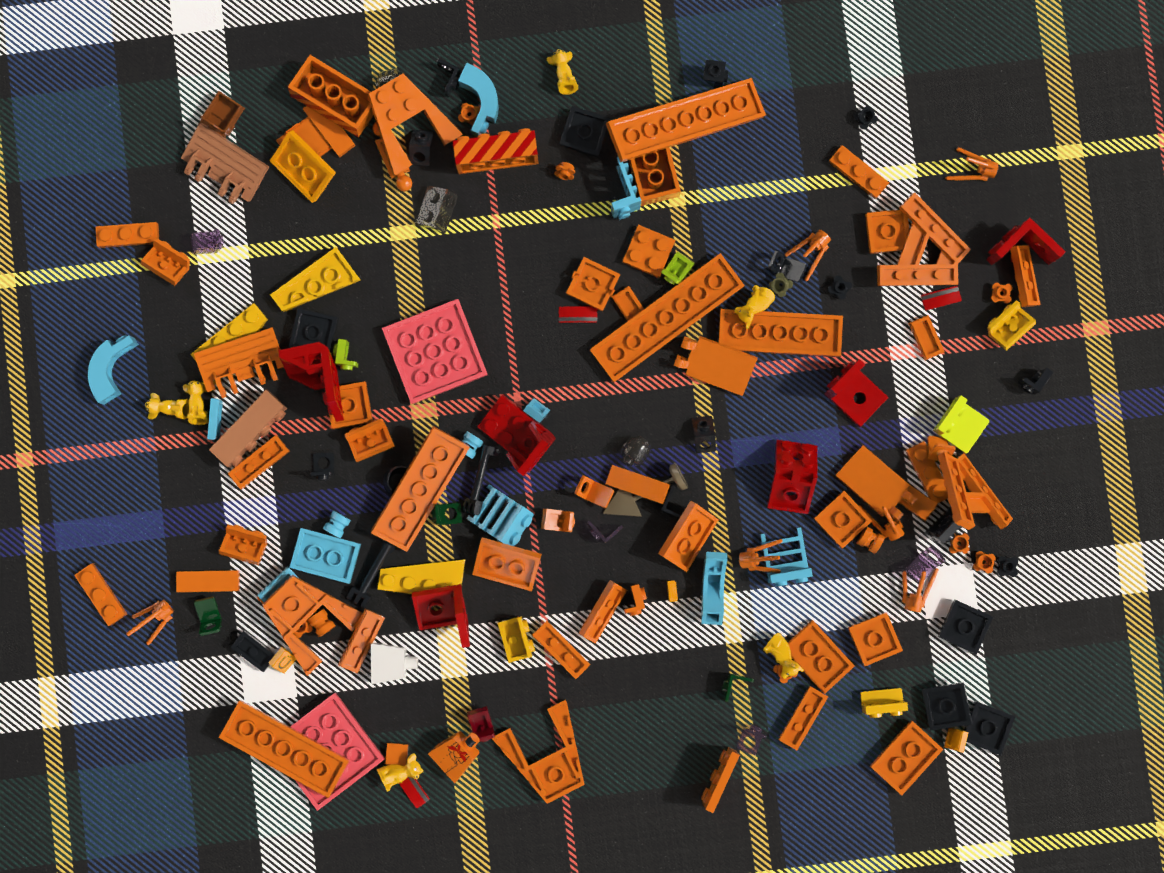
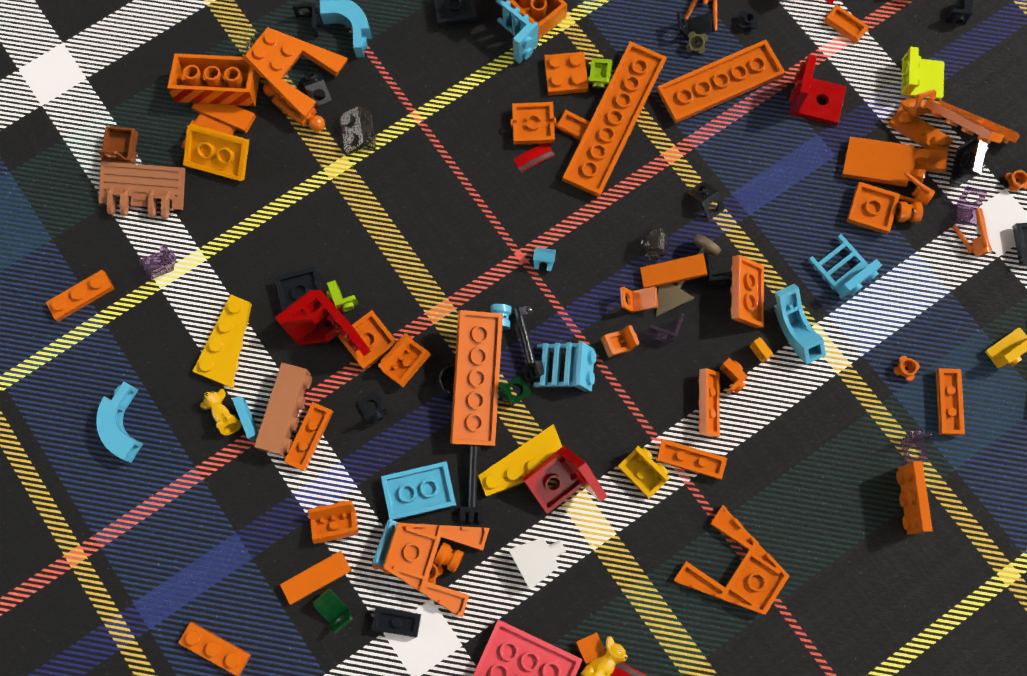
camera: 25 degrees left, 10 degrees down
(161, 610) = (283, 632): orange plant -> none
(166, 262) = (128, 298): orange bracket -> none
(178, 408) = (204, 426): yellow animal -> none
(239, 358) = (242, 349): orange hinge -> none
(282, 660) = (429, 614): light orange tile -> none
(317, 280) = (281, 243): yellow wing -> none
(336, 524) = (414, 454): medium azure wheel -> none
(361, 641) = (496, 554): orange tile -> none
(434, 351) = (422, 252): coral plate -> none
(456, 754) = (650, 614): orange torso -> none
(467, 108) = (342, 35): orange plate -> none
(481, 723) = (657, 572): dark red bracket -> none
(495, 151) = (385, 53): orange brick -> none
(506, 564) = (596, 405): orange plate -> none
(517, 433) = (538, 282): red bracket -> none
(565, 171) = (455, 43): orange plate -> none
(717, 364) = (683, 133): orange tile -> none
(726, 688) = (864, 407): dark green bracket -> none
(751, 559) = (814, 285): orange plant -> none
(760, 301) = (686, 64): yellow animal -> none
(781, 651) = (892, 349): yellow animal -> none
(793, 476) = (809, 185): red bracket -> none
(819, 656) = (927, 340): orange tile -> none
(875, 639) = (968, 296): orange plate -> none
(959, 548) = (991, 176): orange plate -> none

